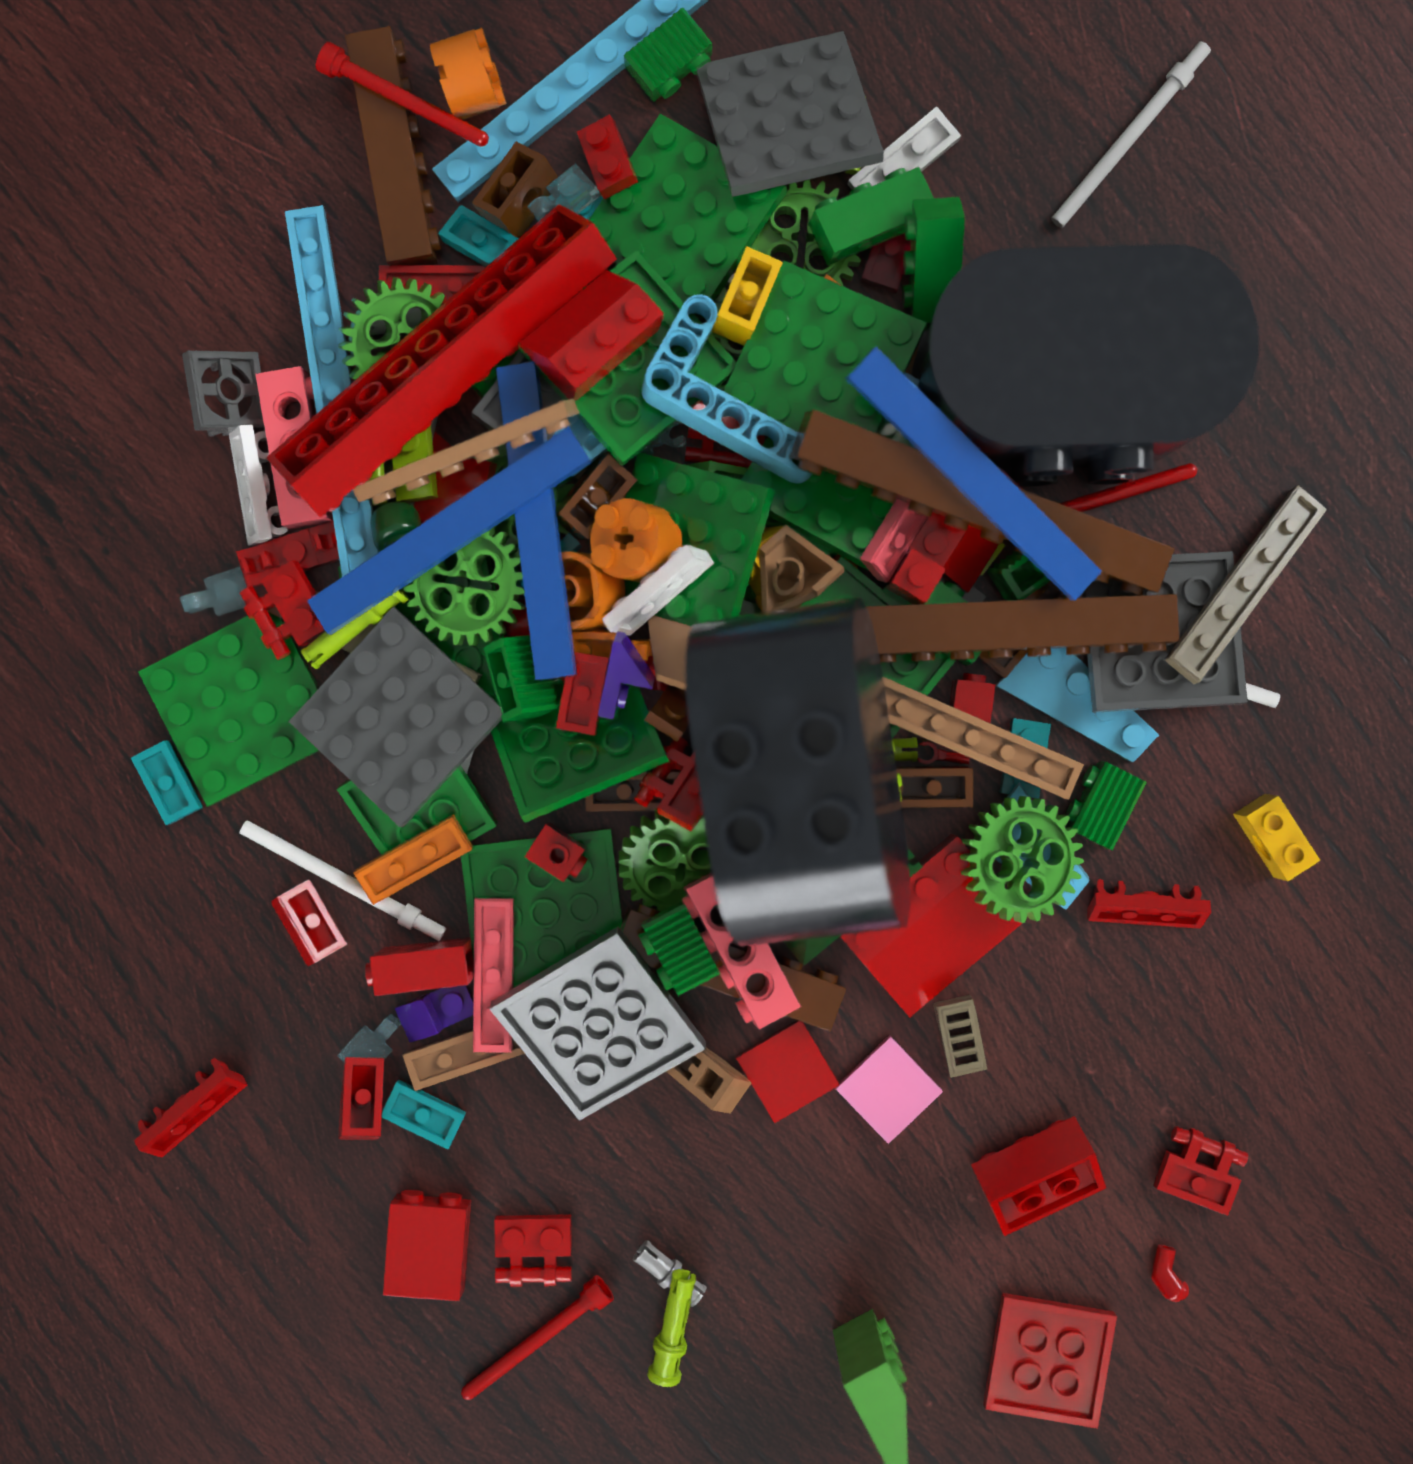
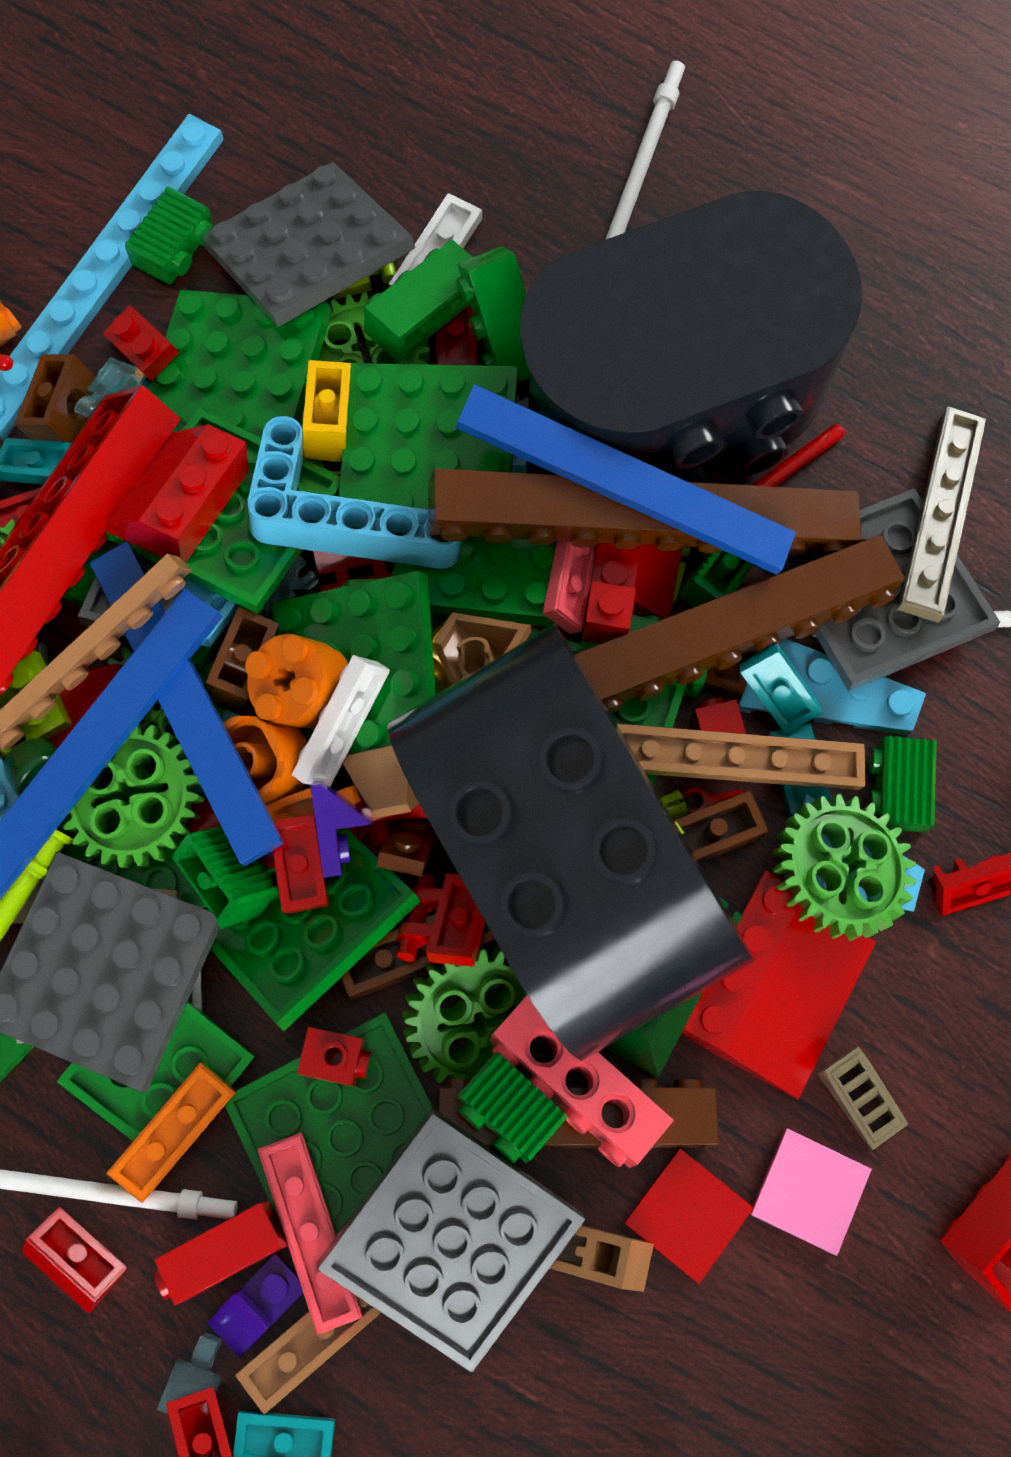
camera: 25 degrees left, 15 degrees down
(1035, 690) = (780, 688): none -> teal plate

